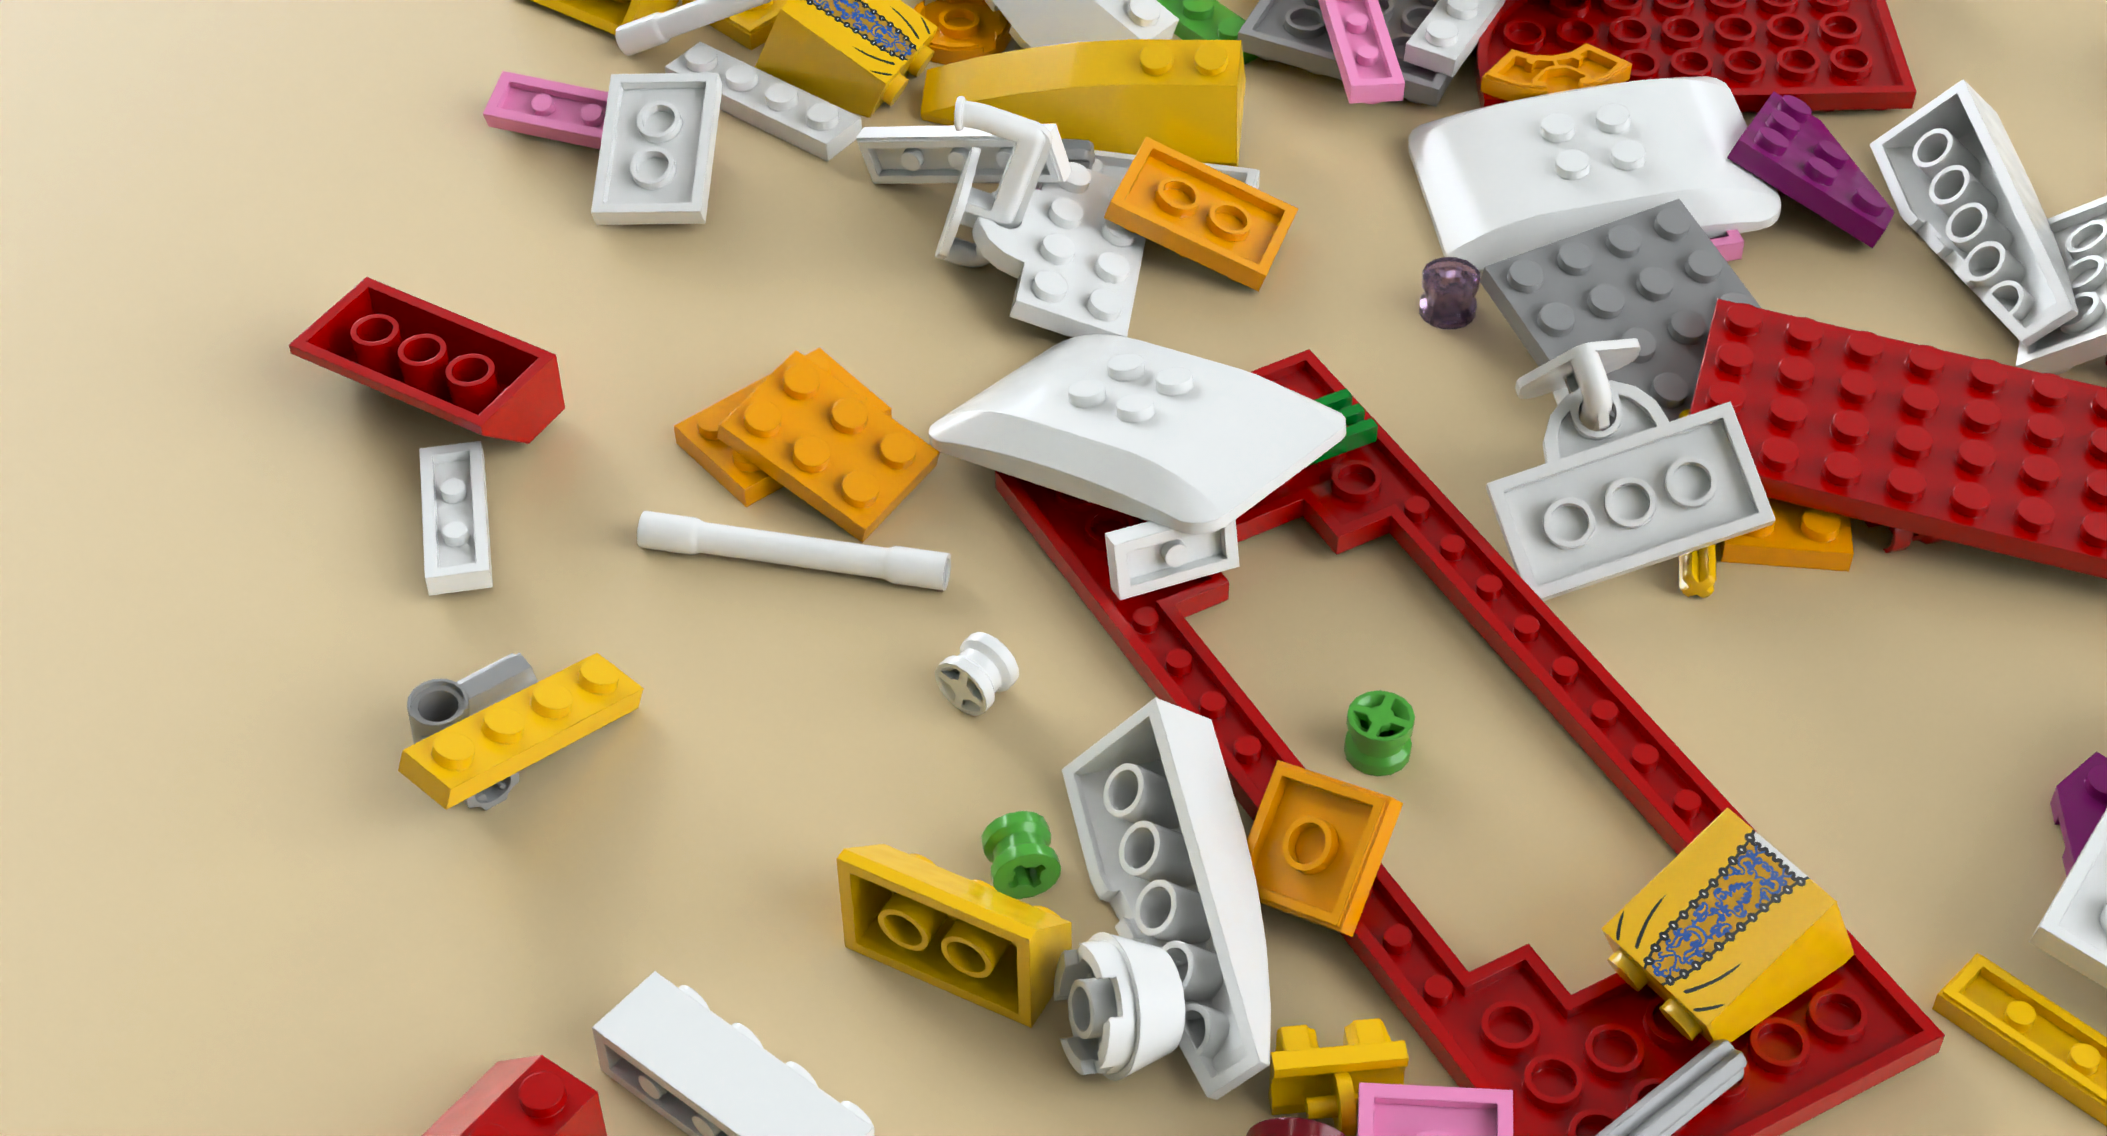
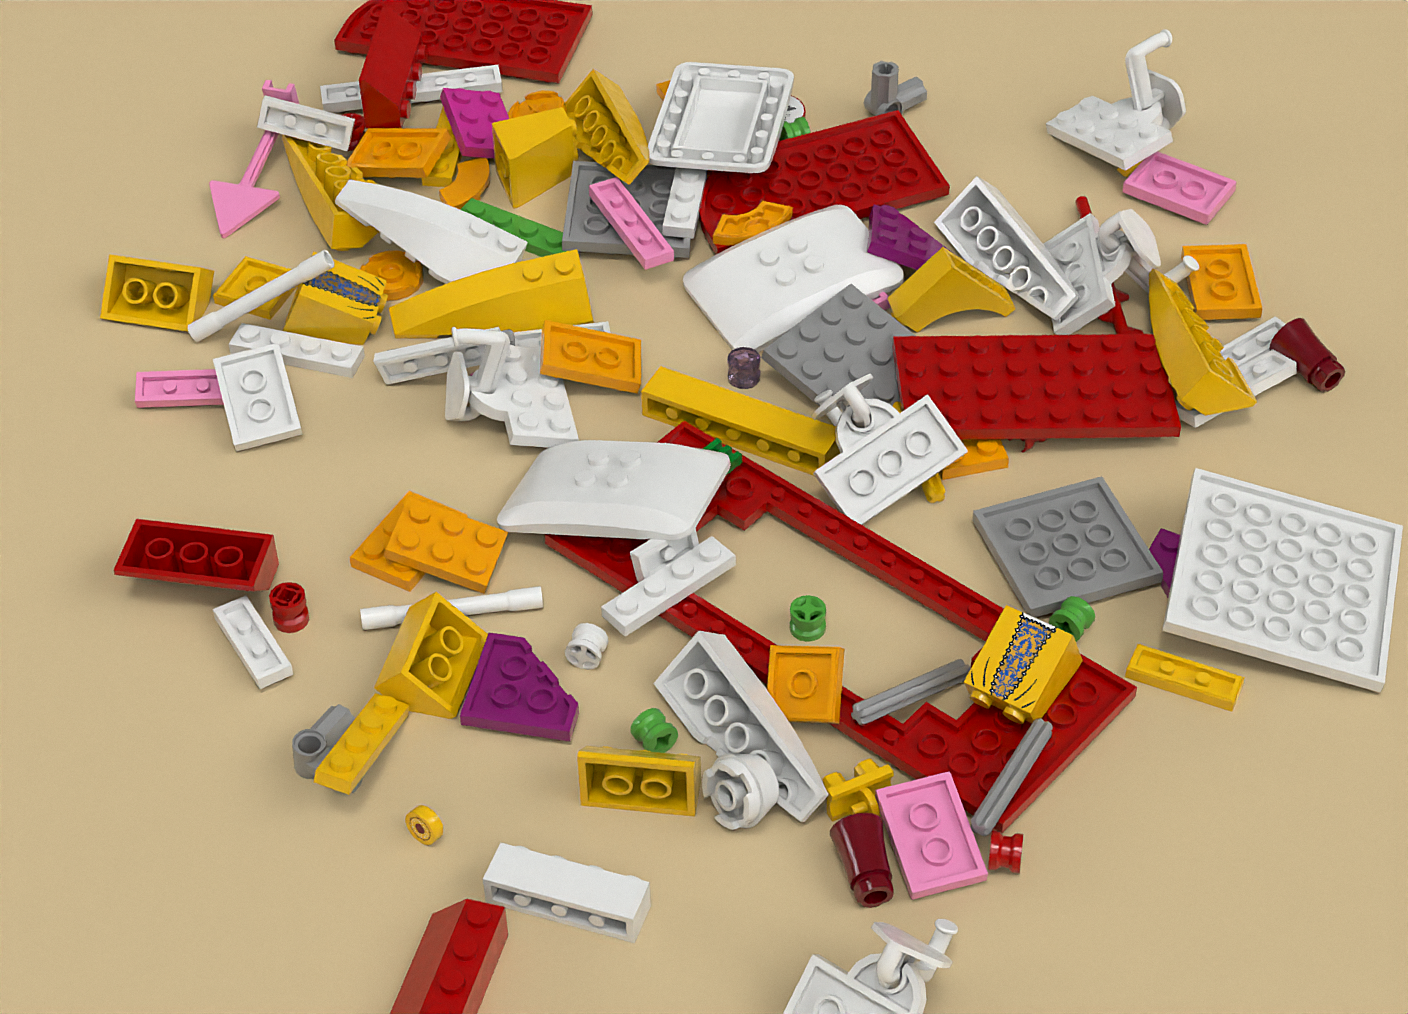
camera: 20 degrees left, 0 degrees up
(537, 478) = (289, 607): none -> red wheel
(560, 899) = (424, 824): none -> yellow tile
(717, 624) = (432, 658): none -> yellow slope
(826, 720) = (517, 693): none -> magenta plate
(1156, 610) = (668, 586): none -> white plate
(1401, 371) = (740, 420): none -> yellow brick
(1499, 917) = (910, 692): none -> light grey axle
(1844, 242) = (946, 287): none -> yellow arch
(1864, 871) = (1073, 616): none -> bright green wheel
(1905, 739) = (1066, 546): none -> light grey plate

